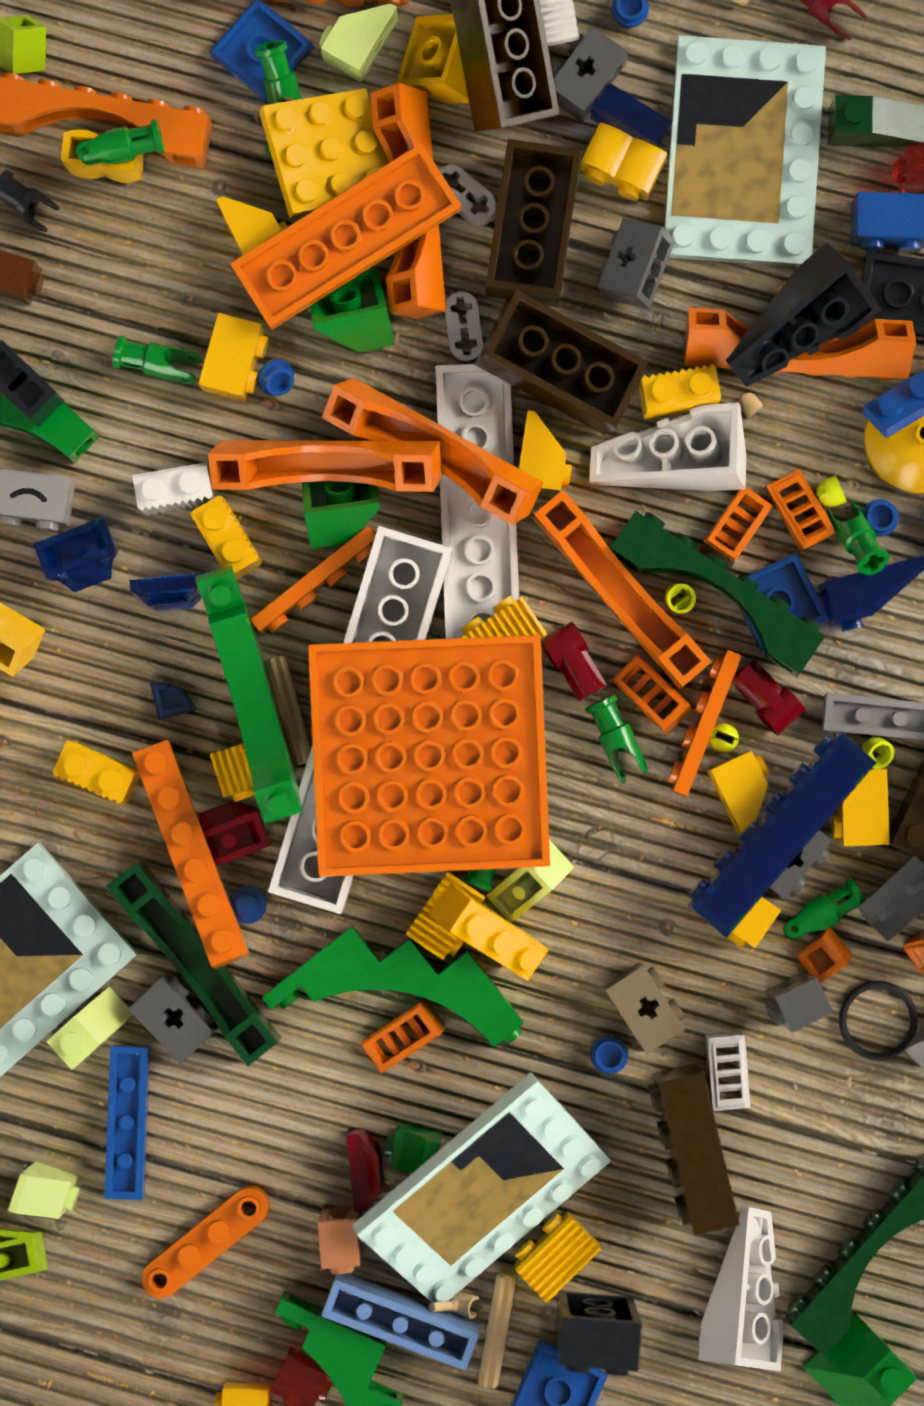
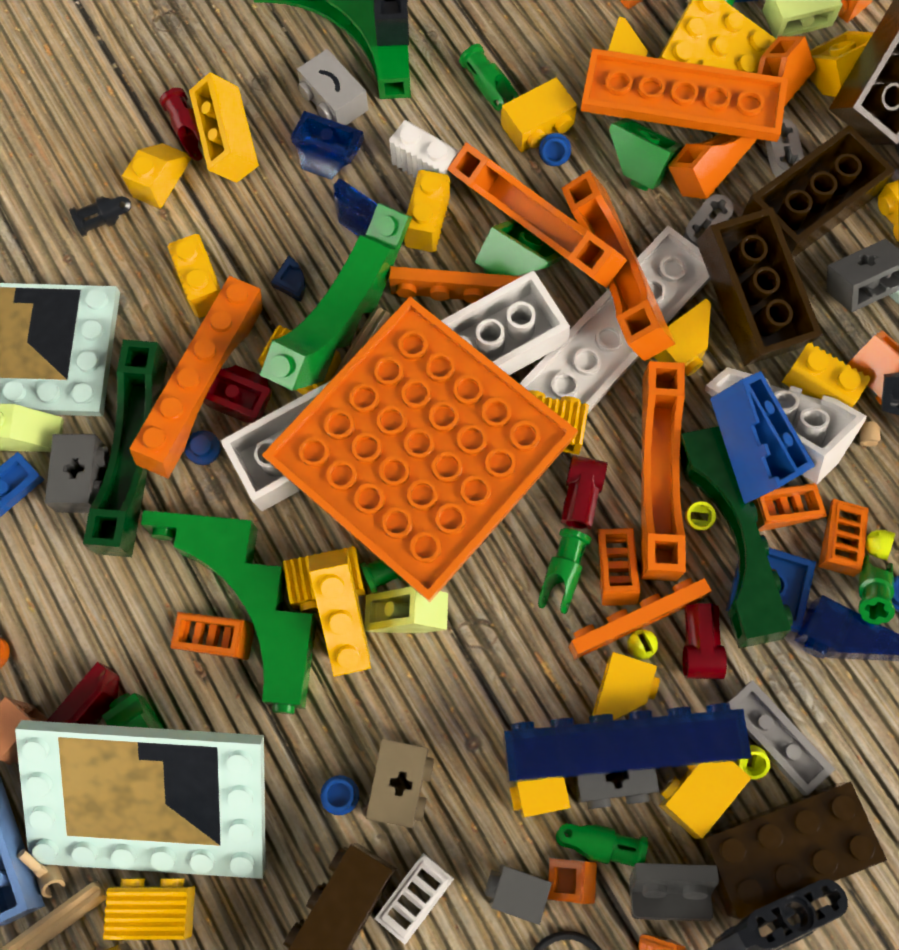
camera: 45 degrees right, 15 degrees down
(675, 502) = (758, 437): none -> blue wedge

